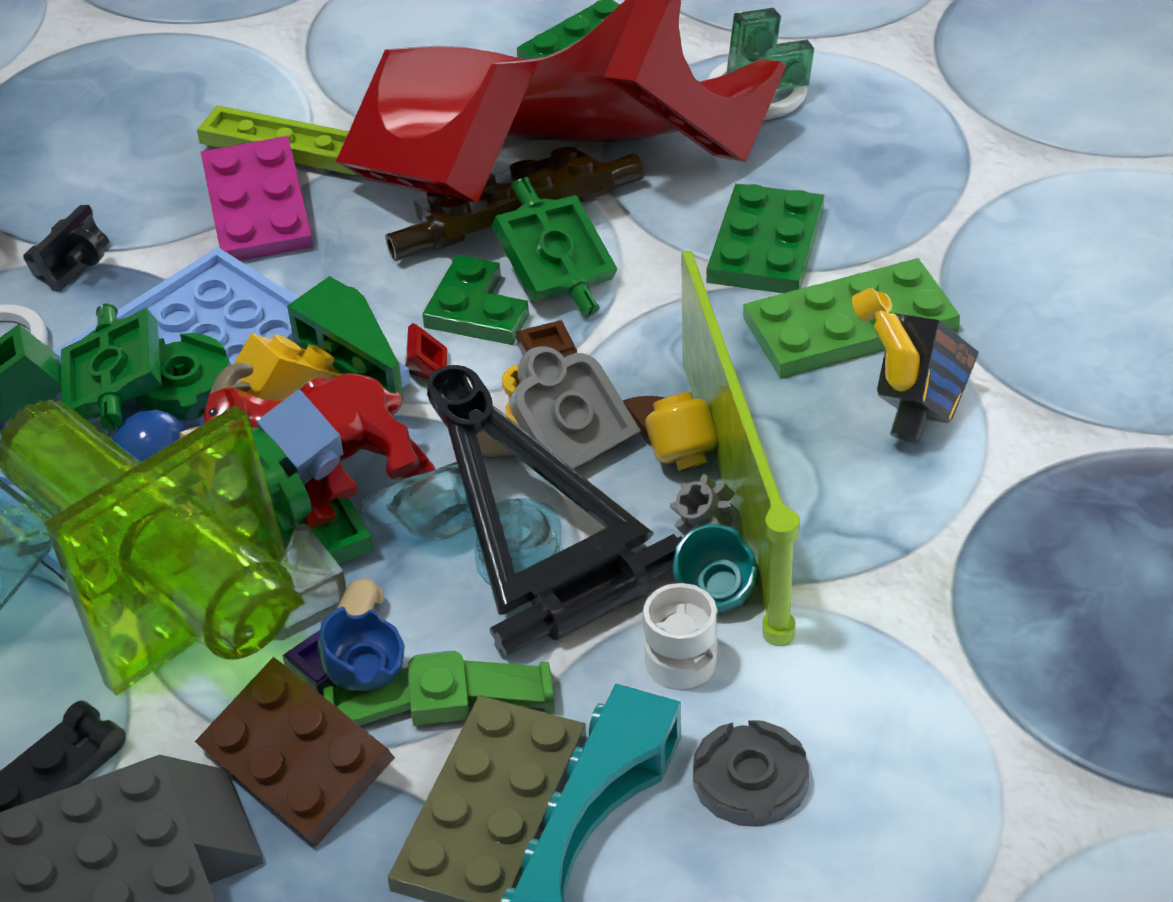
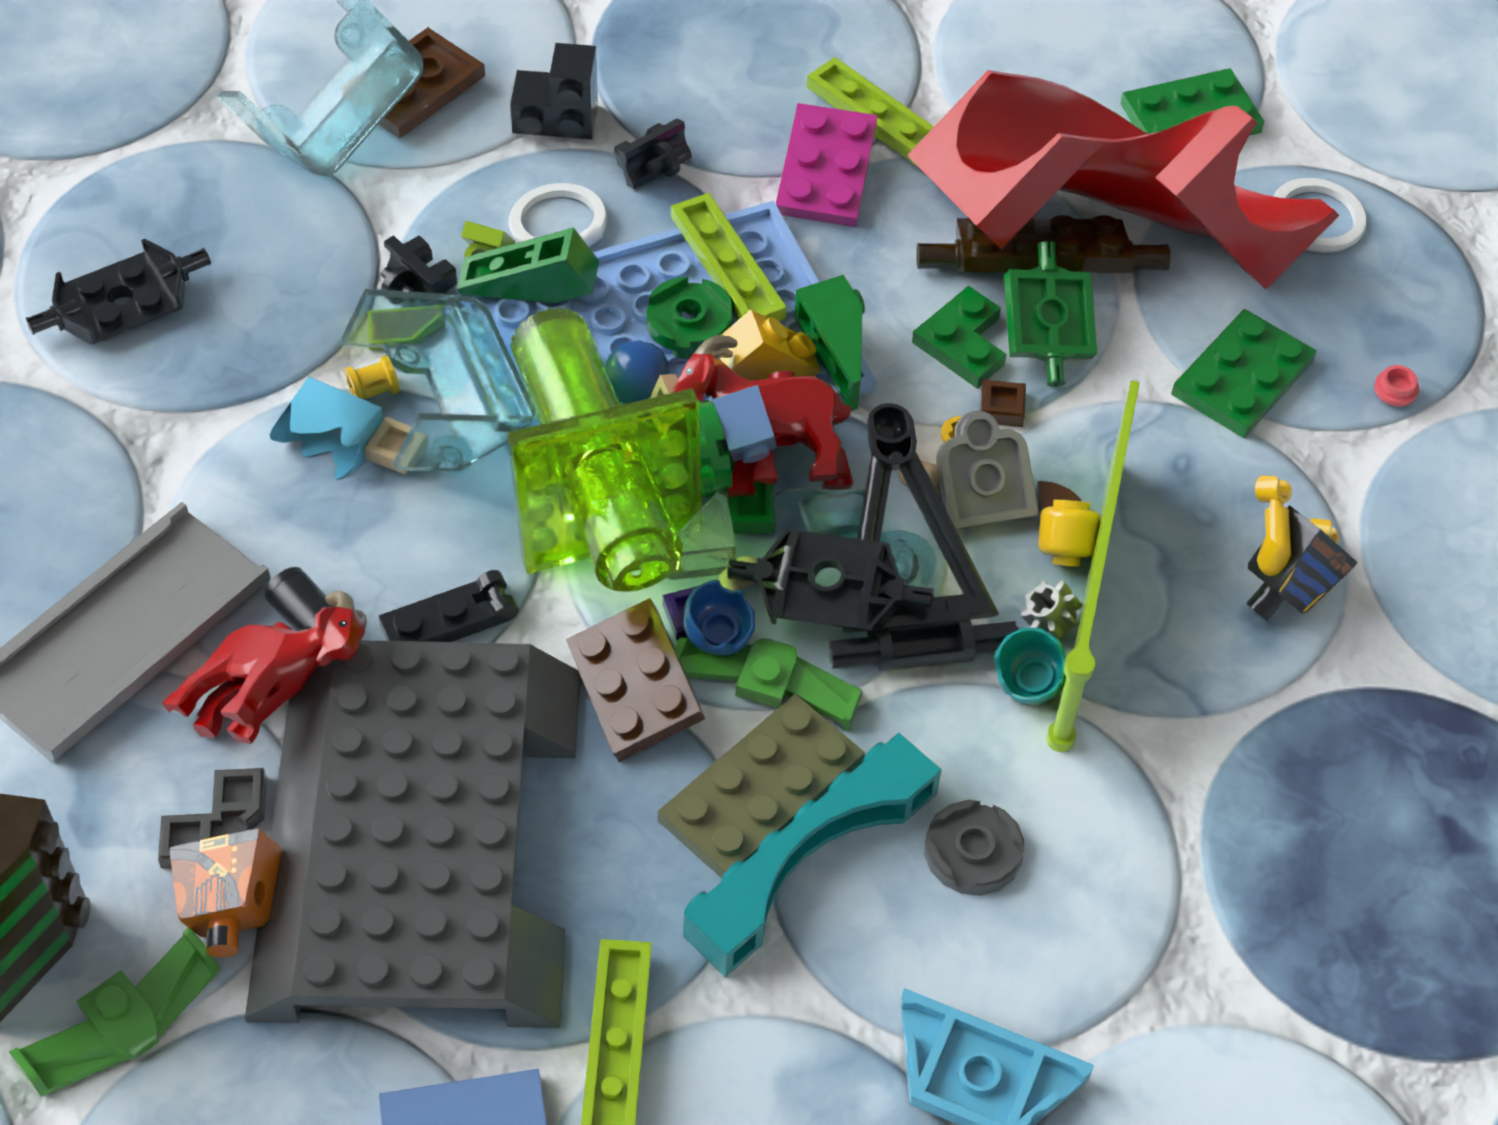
camera: 20 degrees right, 10 degrees up
(111, 365) = (633, 290): green plate -> none
(191, 305) = (726, 257): none -> lime plate
(423, 352) = (898, 372): red slope -> none
(506, 567) = (861, 598): none -> black plate
(680, 636) = (973, 712): white wheel -> none
(756, 38) = (1327, 179): clear green plate -> none
(819, 323) = (1324, 477): bright green plate -> none
(915, 198) = (1397, 386): none -> coral plate

